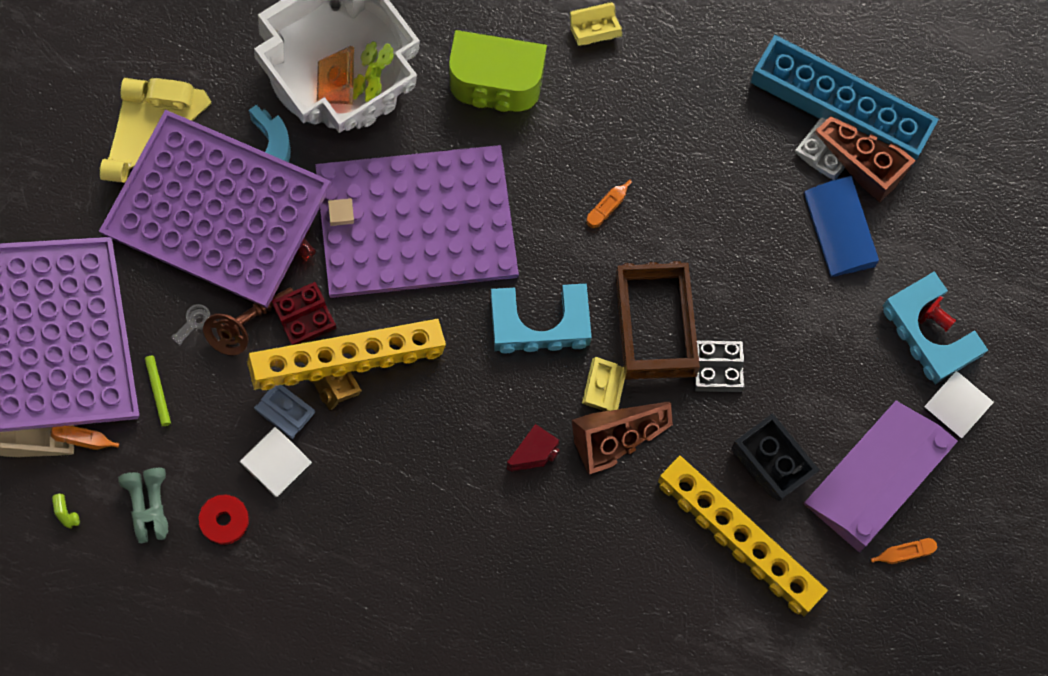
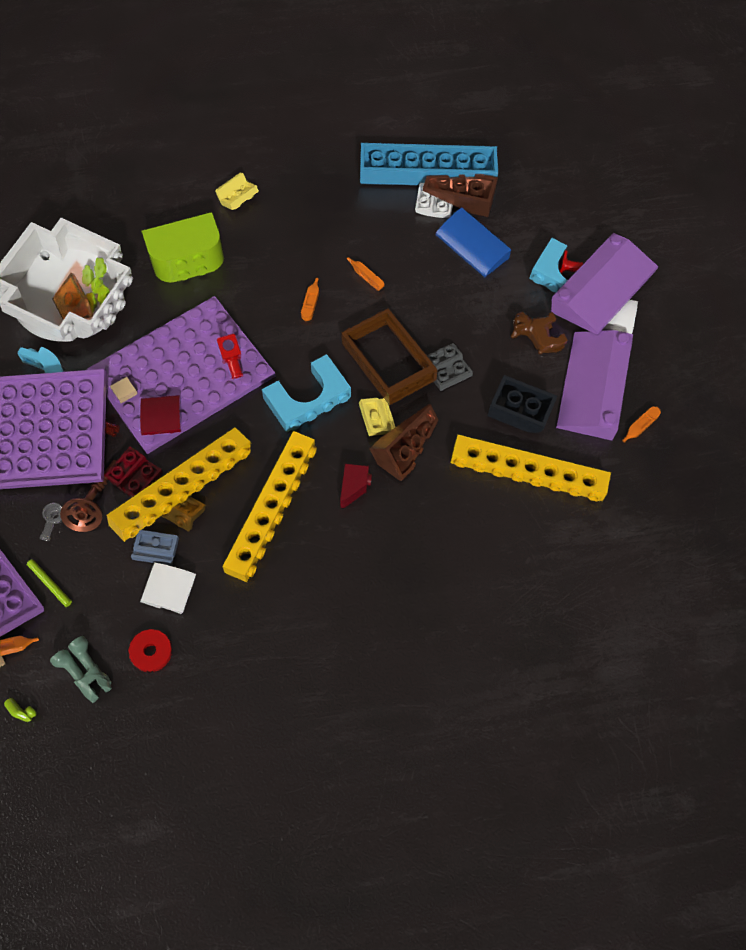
camera: 25 degrees left, 5 degrees down
(365, 263) = (160, 415): none -> dark red slope
(476, 235) = (231, 356): none -> red bracket
(495, 372) = (296, 445): none -> yellow brick
(691, 205) = (367, 274): none -> orange piece
(849, 379) = (538, 331): none -> reddish brown animal
(964, 360) = (603, 284): none -> medium lavender slope

